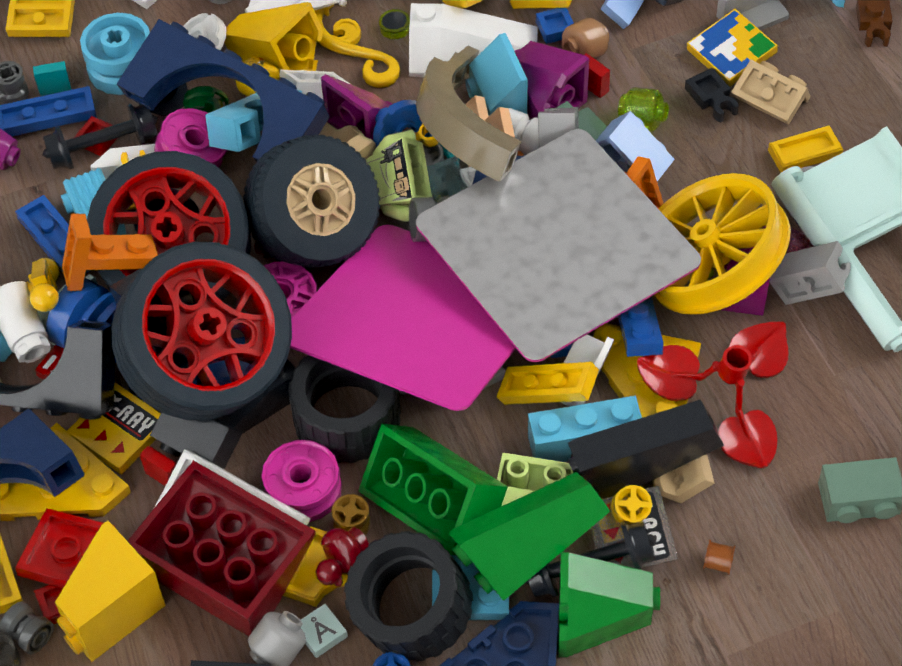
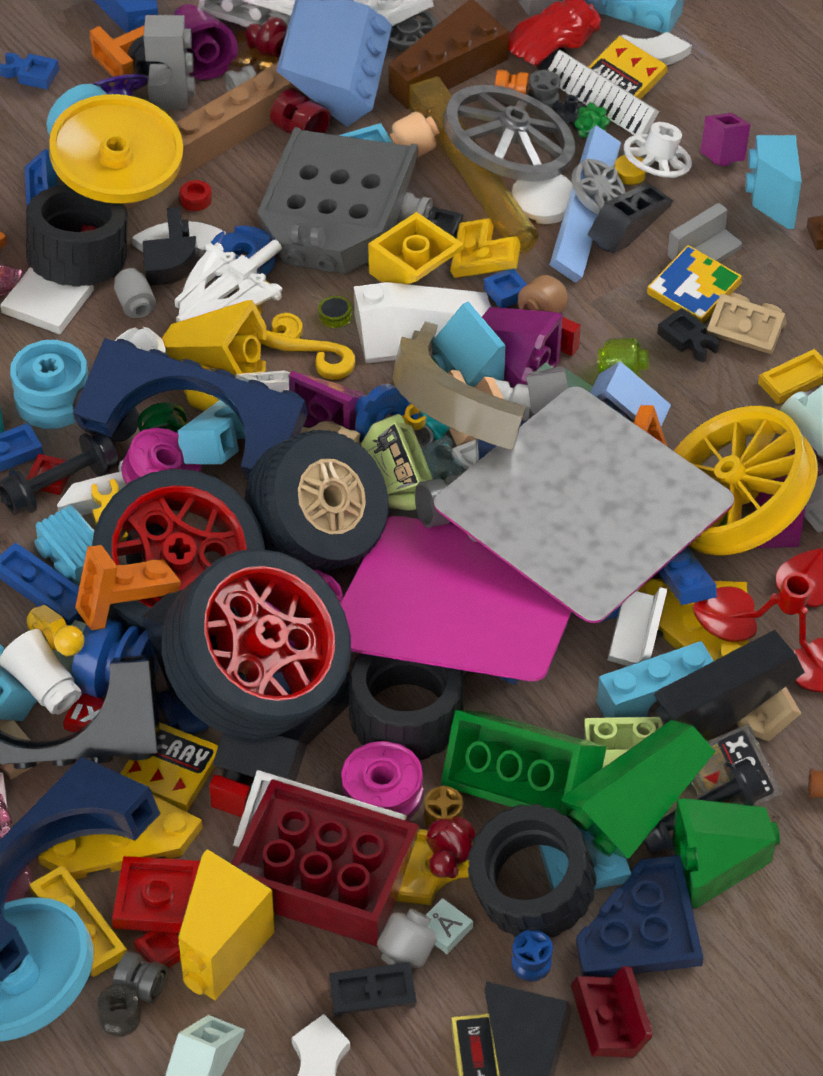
camera: 15 degrees left, 5 degrees down
(548, 383) = (609, 644): yellow plate -> none
(632, 498) = (732, 738): yellow wheel -> none

